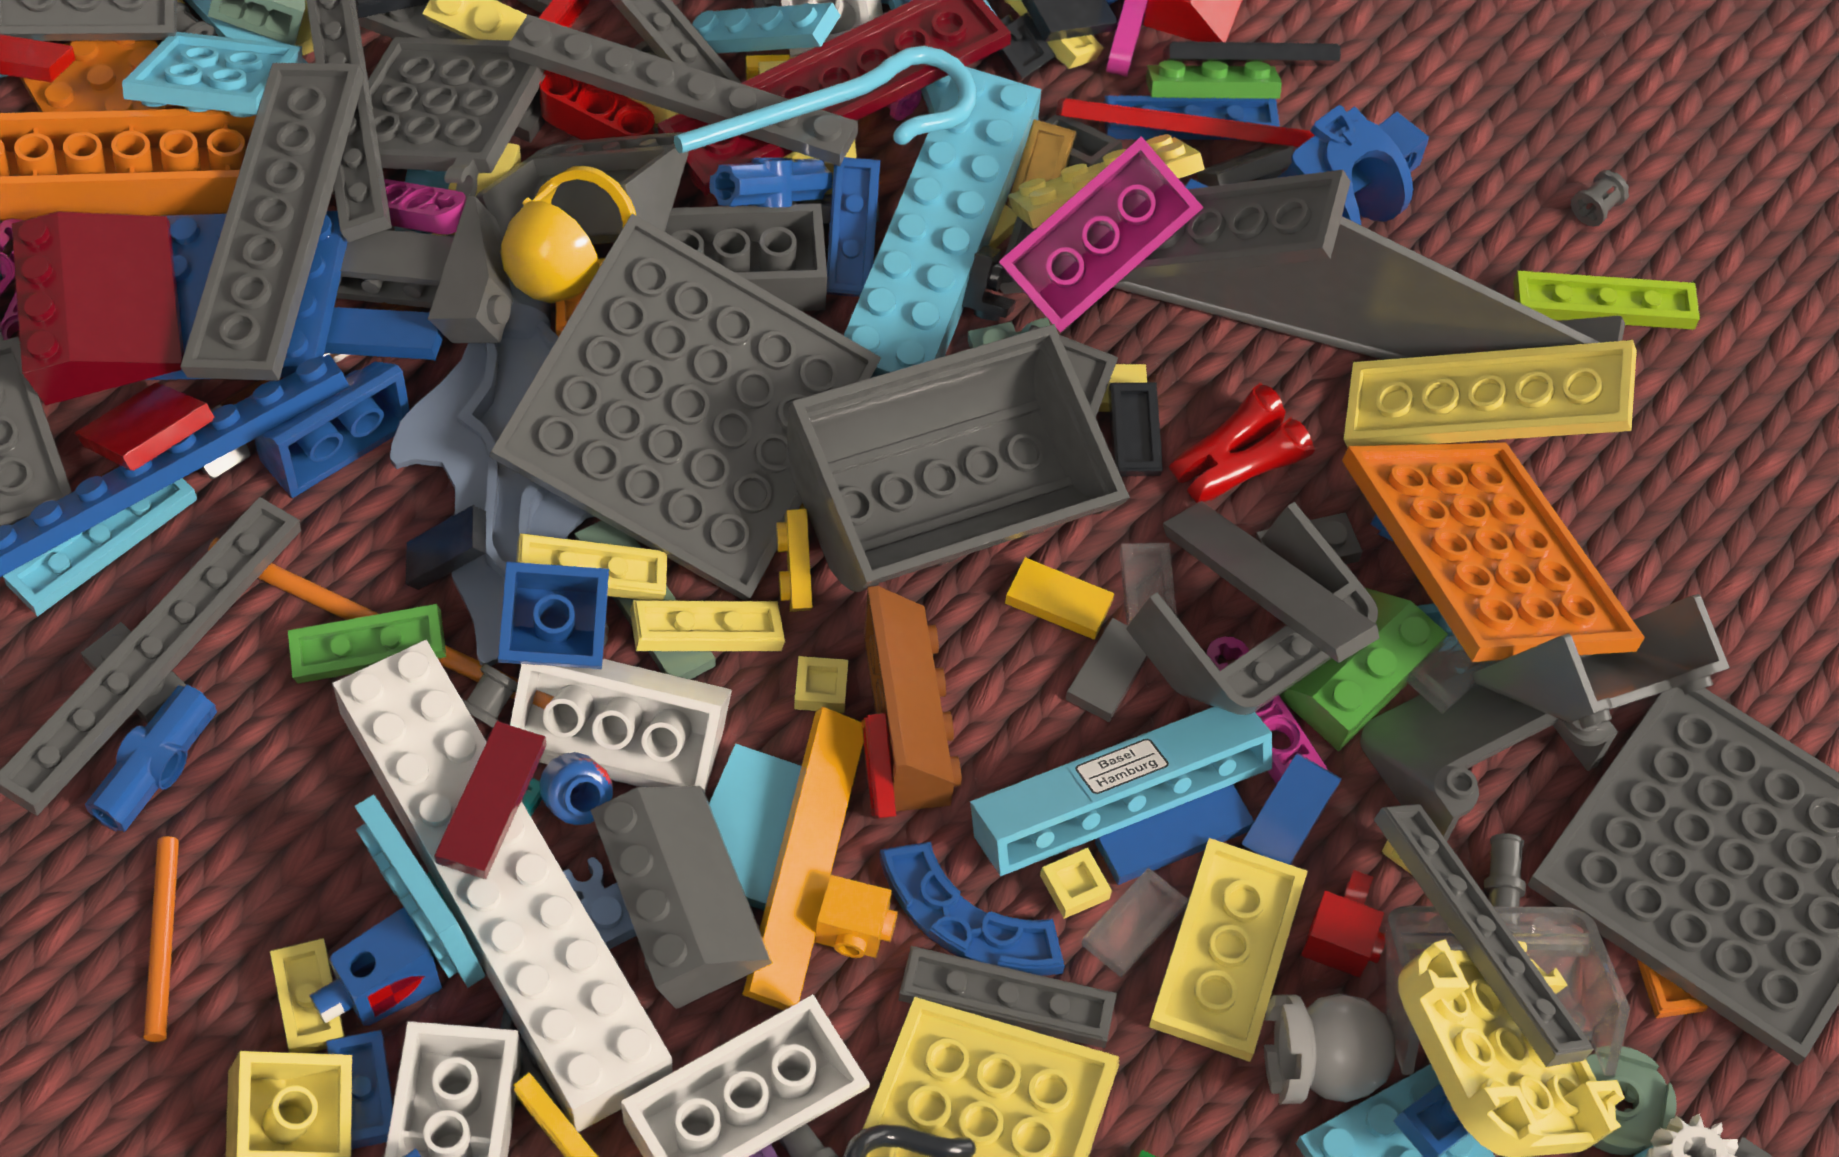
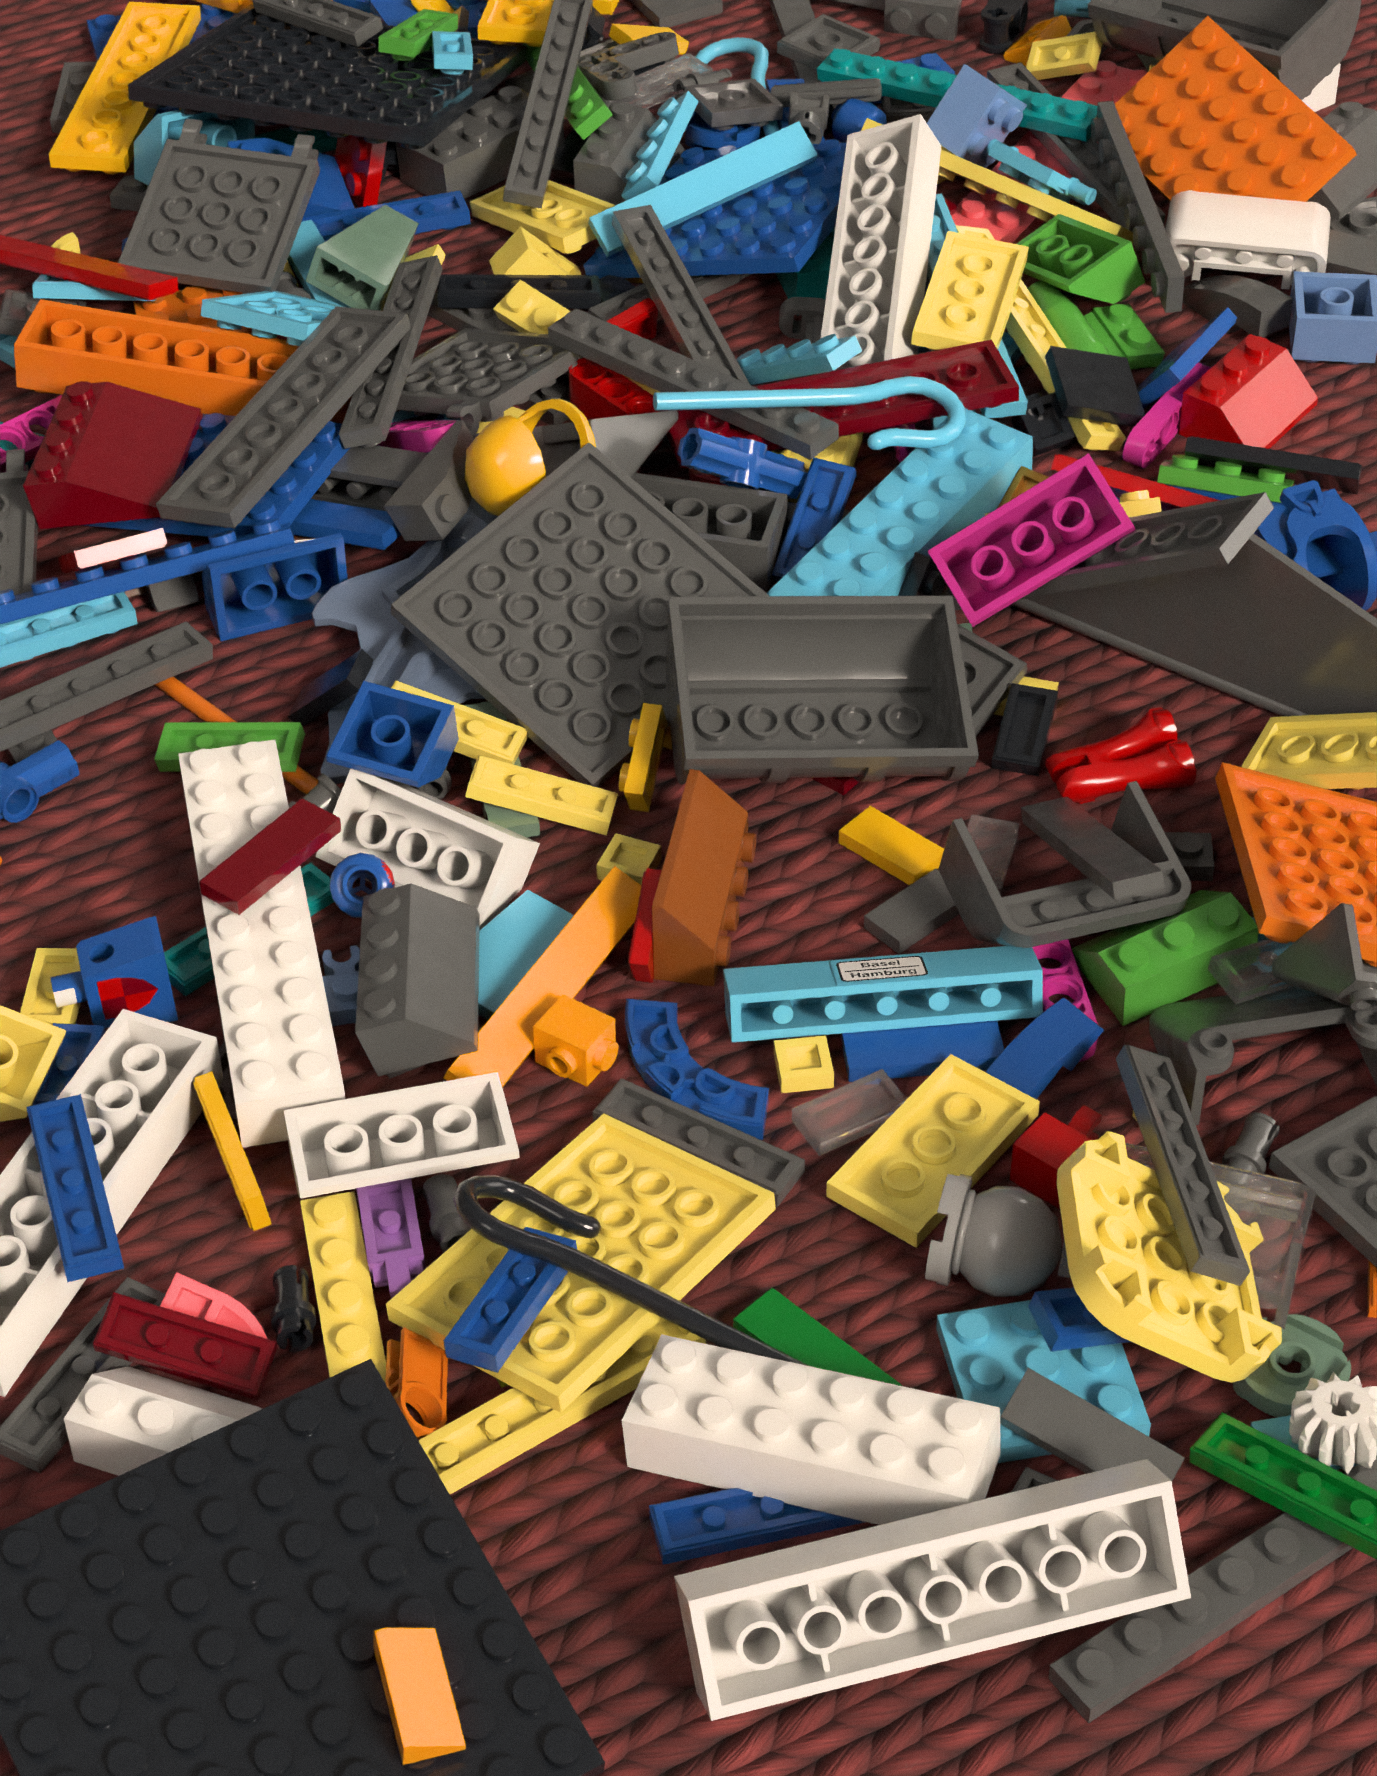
camera: 25 degrees right, 15 degrees down
(417, 893) = (172, 910): medium azure plate -> none

